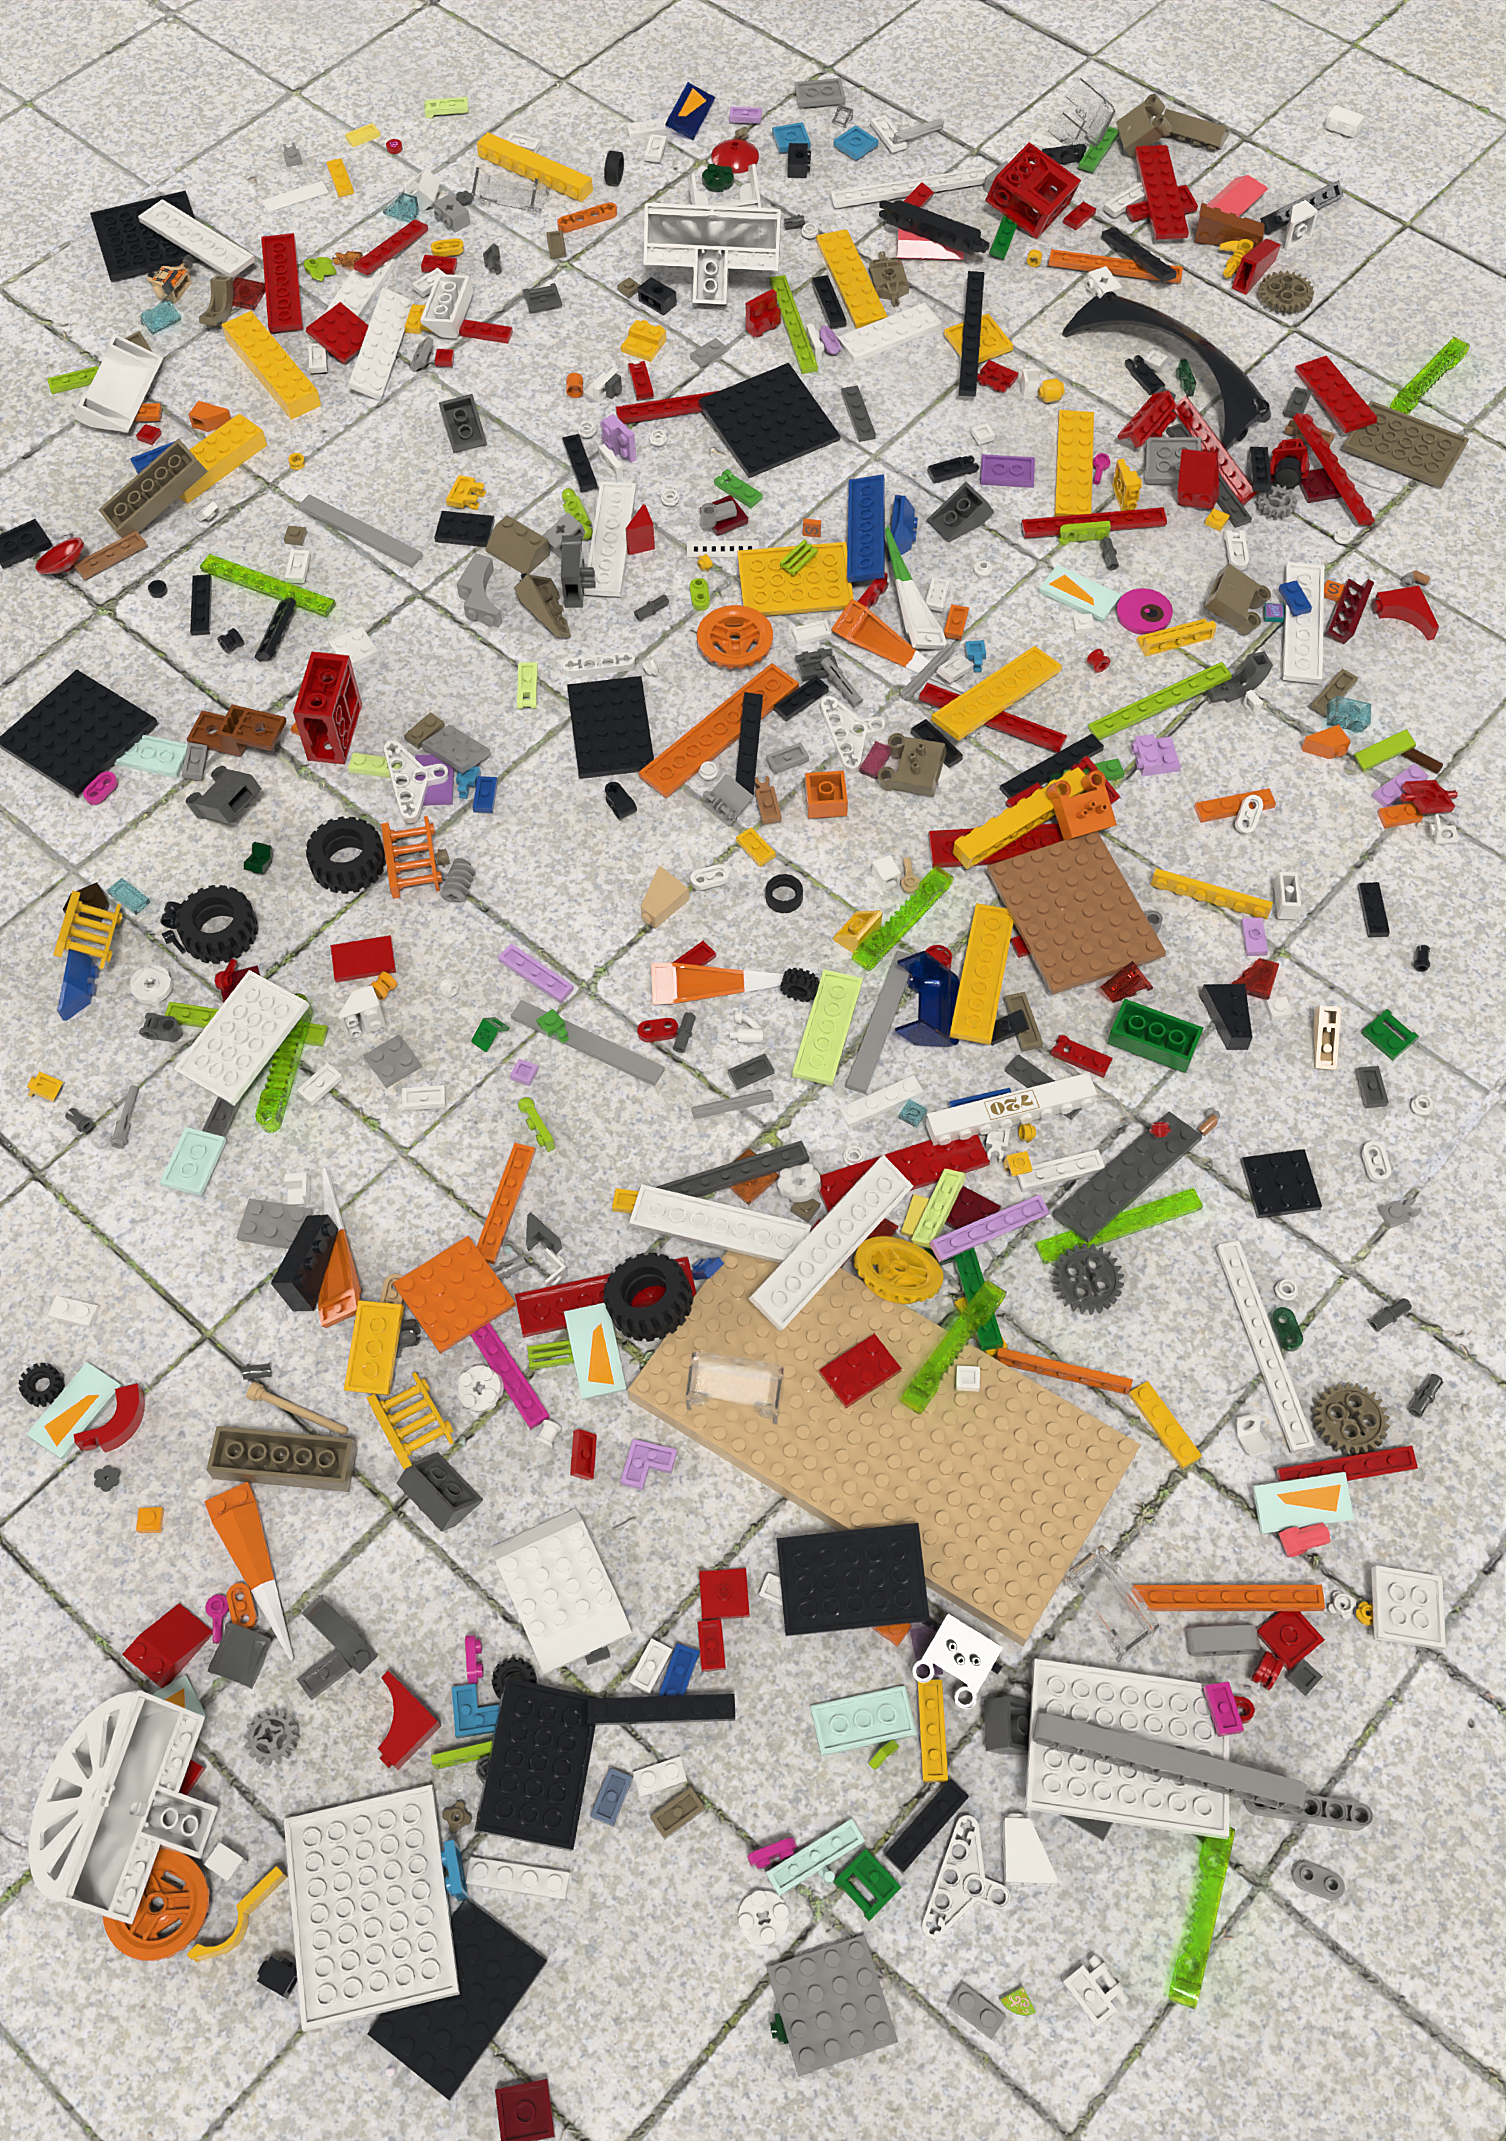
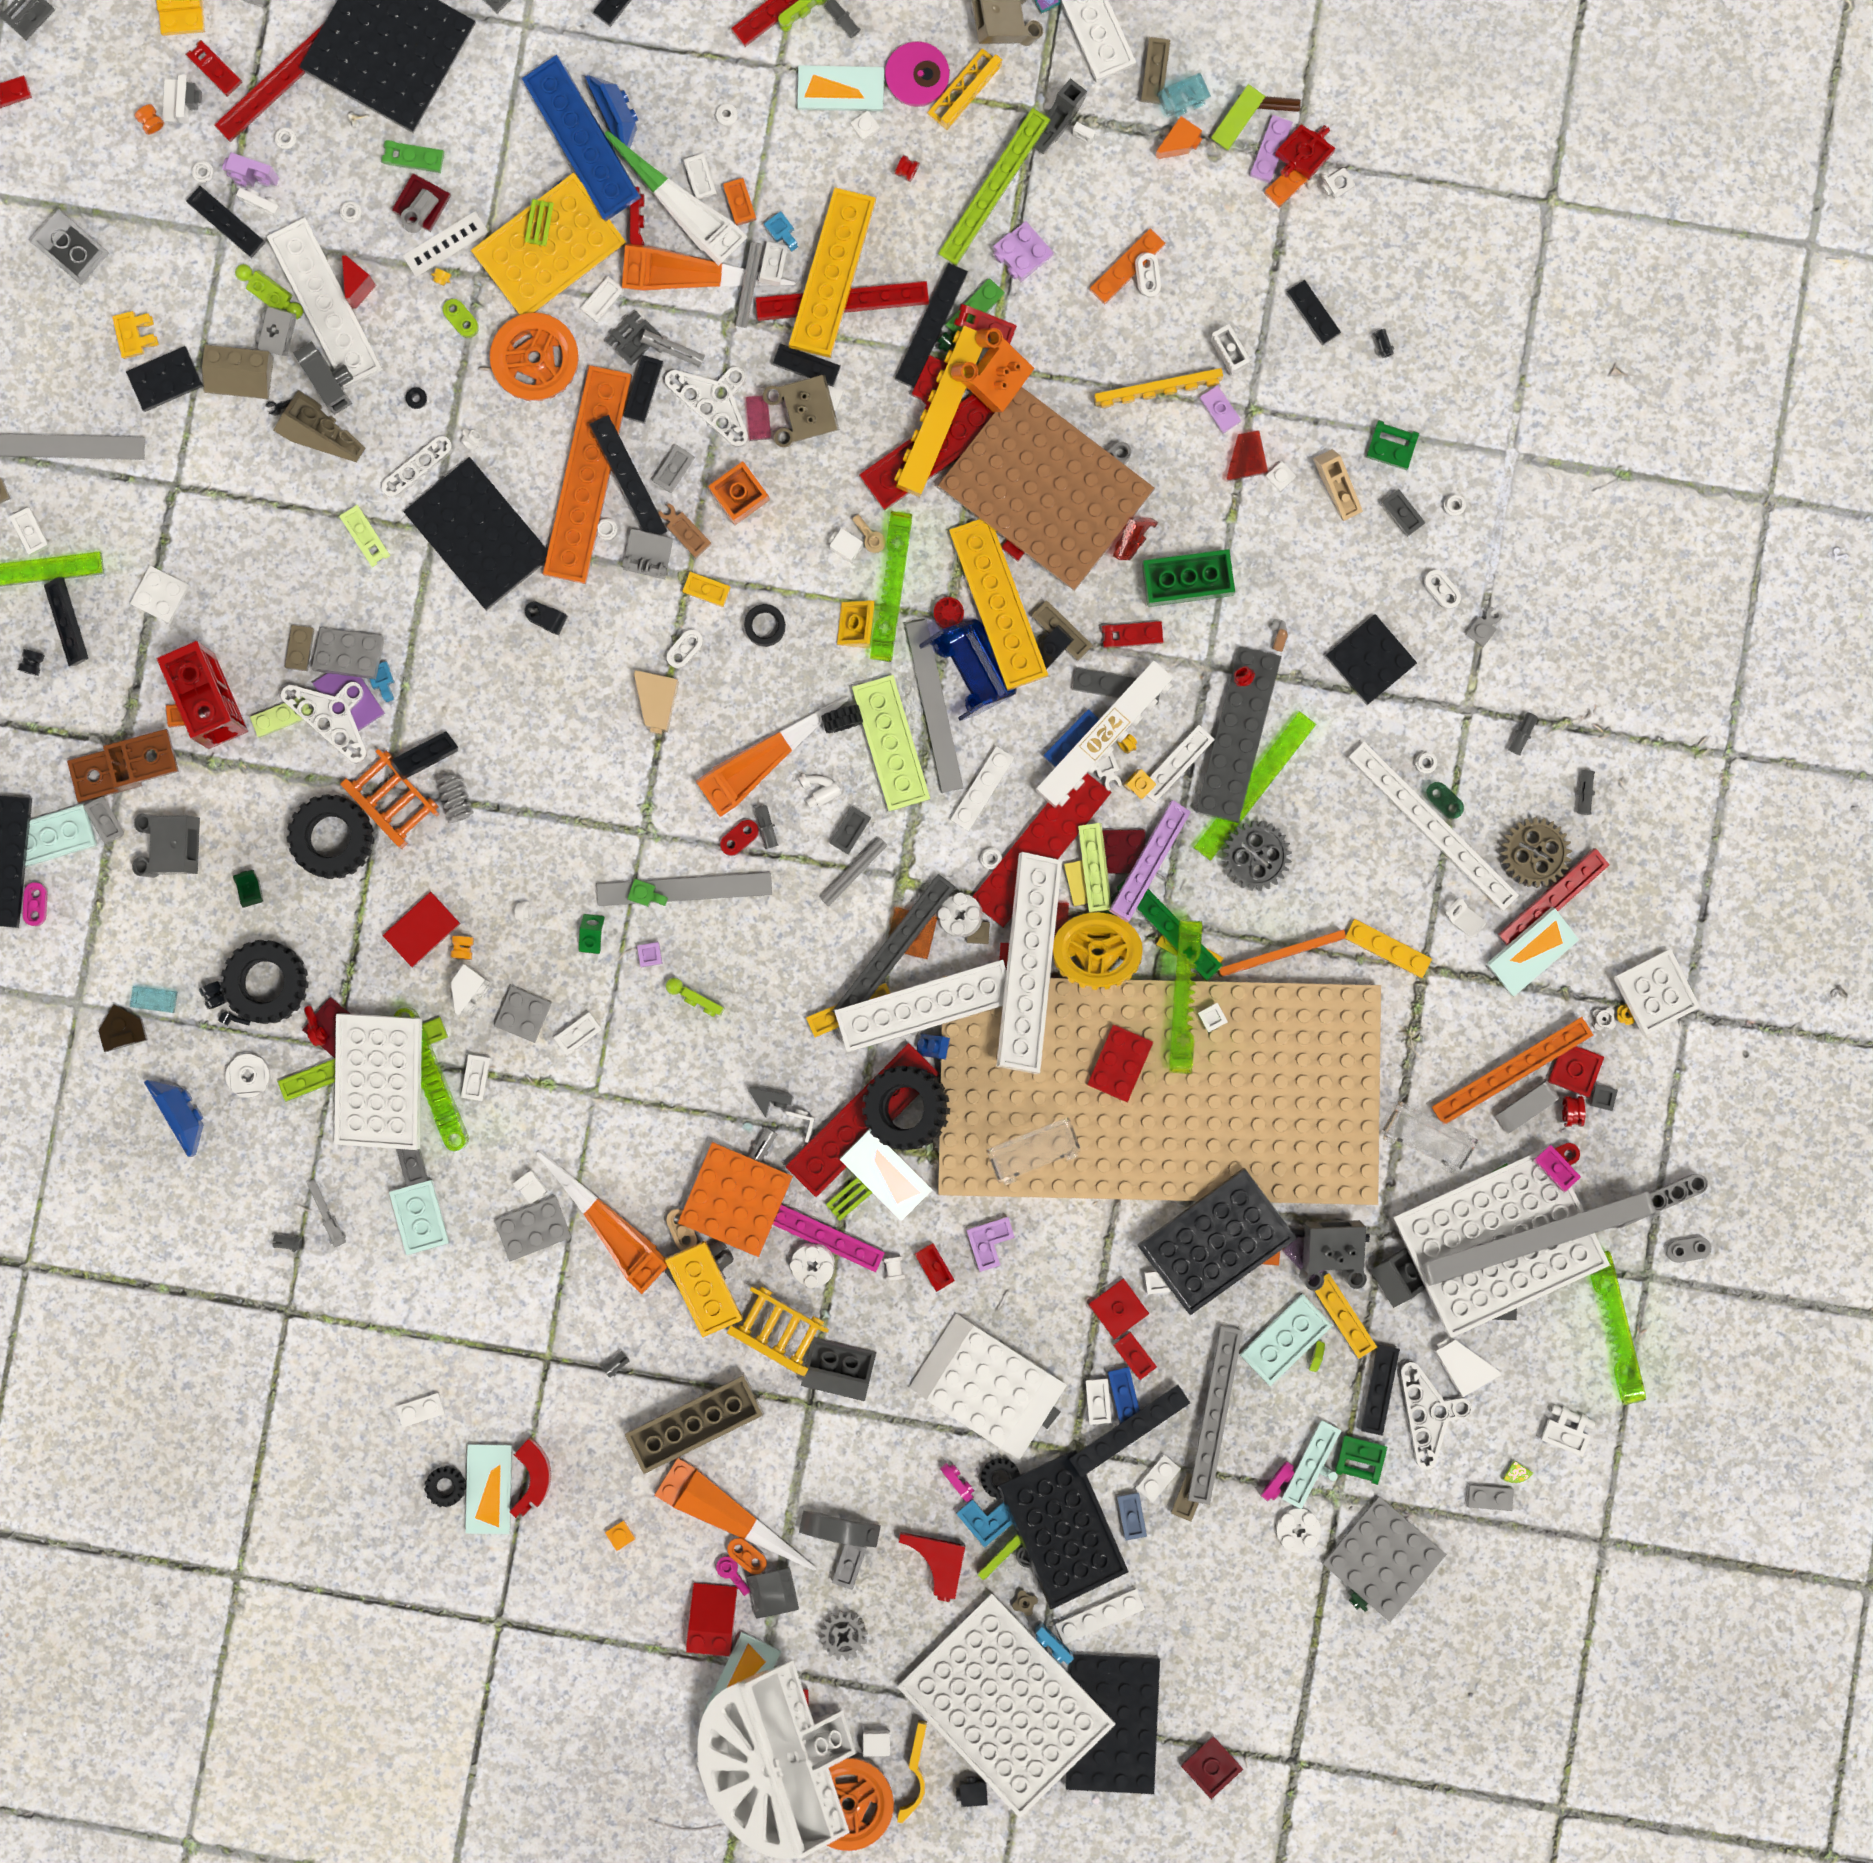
camera: 30 degrees left, 25 degrees up
(44, 1086) = (231, 1231): yellow bracket -> none
(72, 918) = (143, 1082): yellow fence -> none
(101, 1476) = (552, 1525): dark grey plant -> none
(158, 1028) = (287, 1113): dark grey piece -> none
(258, 1392) = (631, 1381): tan piece -> none
(305, 1263) = (590, 1249): black wedge -> none
(442, 857) = (419, 780): dark tan plate -> none
(458, 839) = (424, 755): none -> black plate
(473, 588) = (228, 450): light grey arch -> none
(485, 794) = (411, 686): blue plate -> none
(505, 1201) = (718, 1087): orange plate -> none
(535, 973) = (591, 849): lavender plate -> none
(630, 623) = (413, 392): none -> black plate
(651, 607) = (424, 366): dark grey axle -> none
(698, 955) = (725, 743): red tile -> none
(749, 1748) = (1215, 1415): none -> light grey plate
(812, 528) = (522, 166): orange tile -> none
(912, 1113) = (1016, 783): clear light blue tile -> none
(960, 513) = (663, 57): dark grey slope -> none
(1230, 1012) = (1242, 512): black wedge -> none
(1298, 1541) = (1545, 985): coral piece -> none

